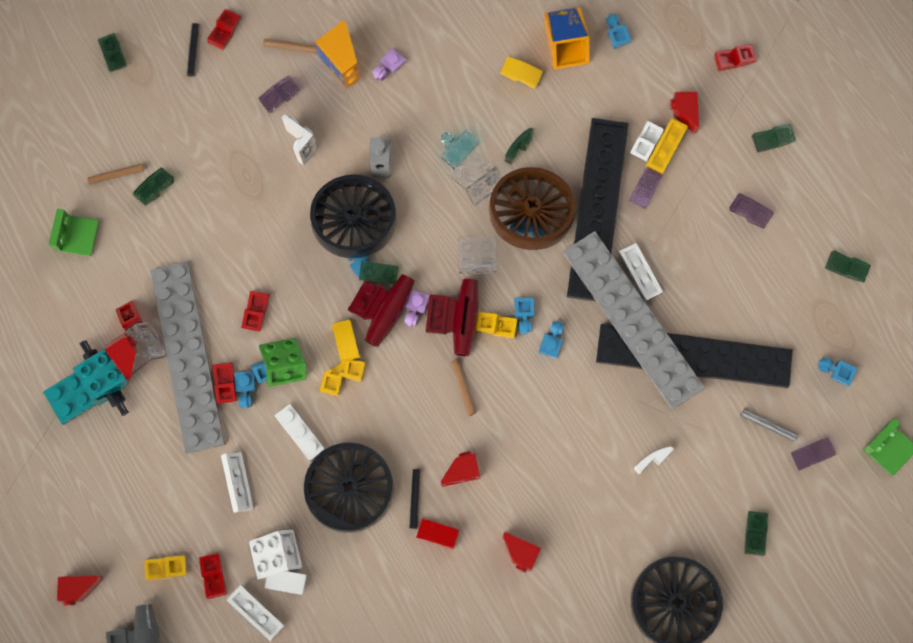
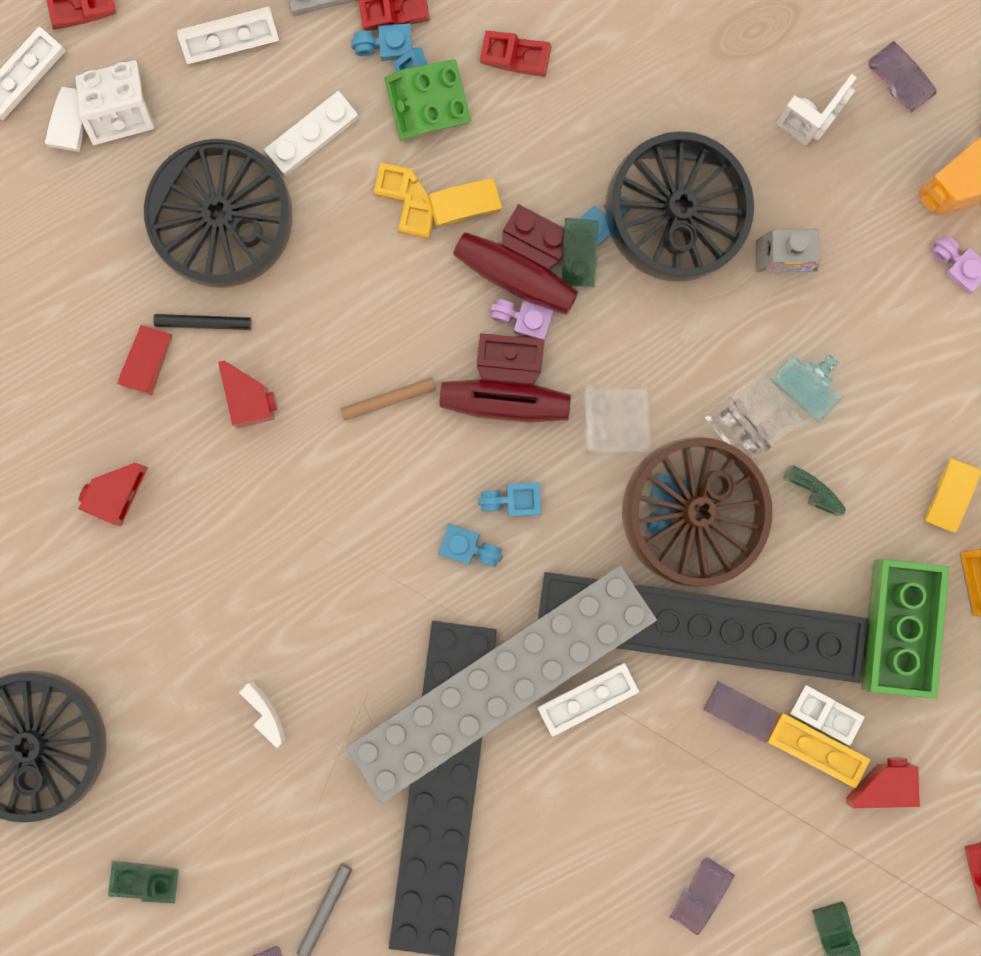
camera: 90 degrees right, 10 degrees up
(497, 325) = (494, 454): yellow slope -> none
(597, 97) = (905, 628): none -> bright green brick

